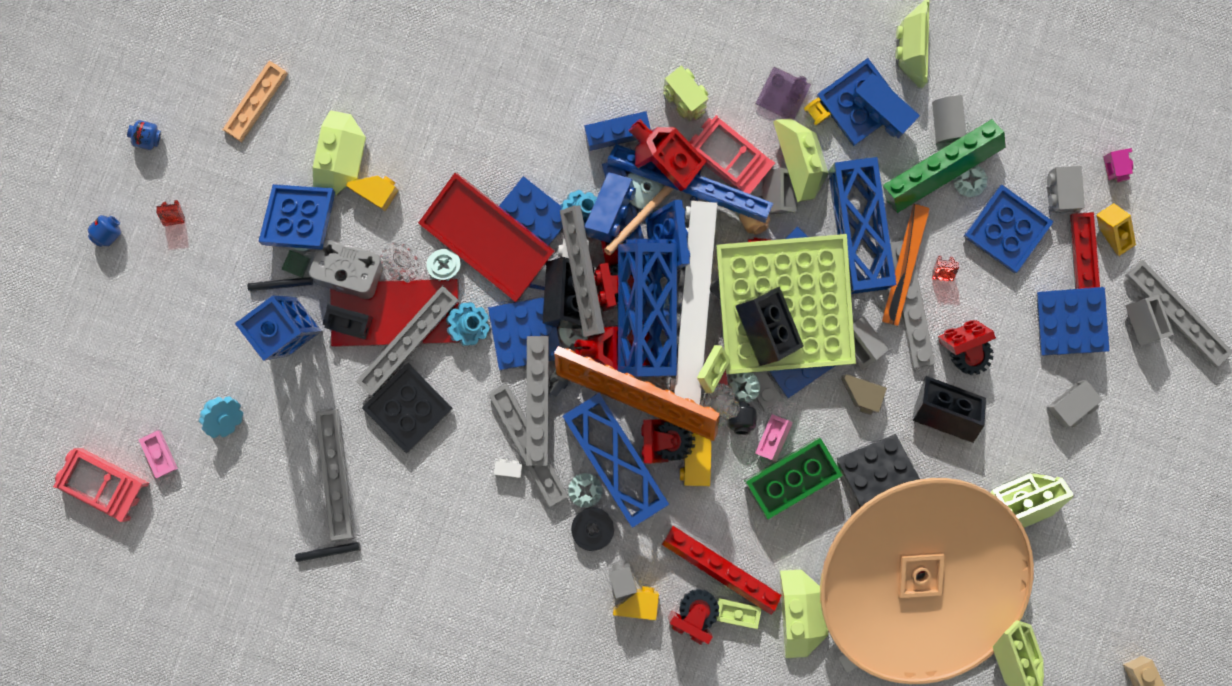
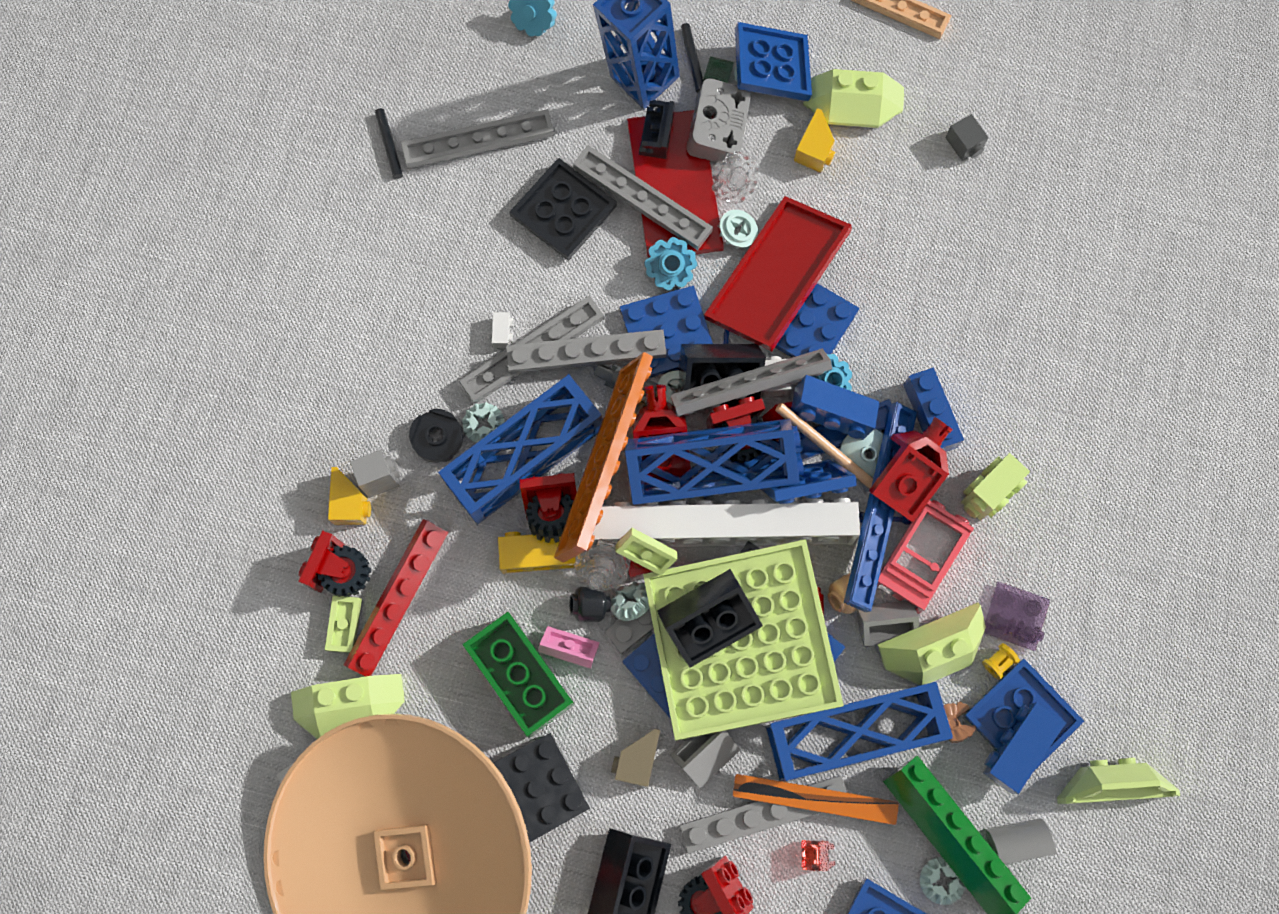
camera: 85 degrees right, 10 degrees down
(385, 65) = (967, 138): none -> dark grey brick
(865, 152) = (959, 731): none -> nougat piece

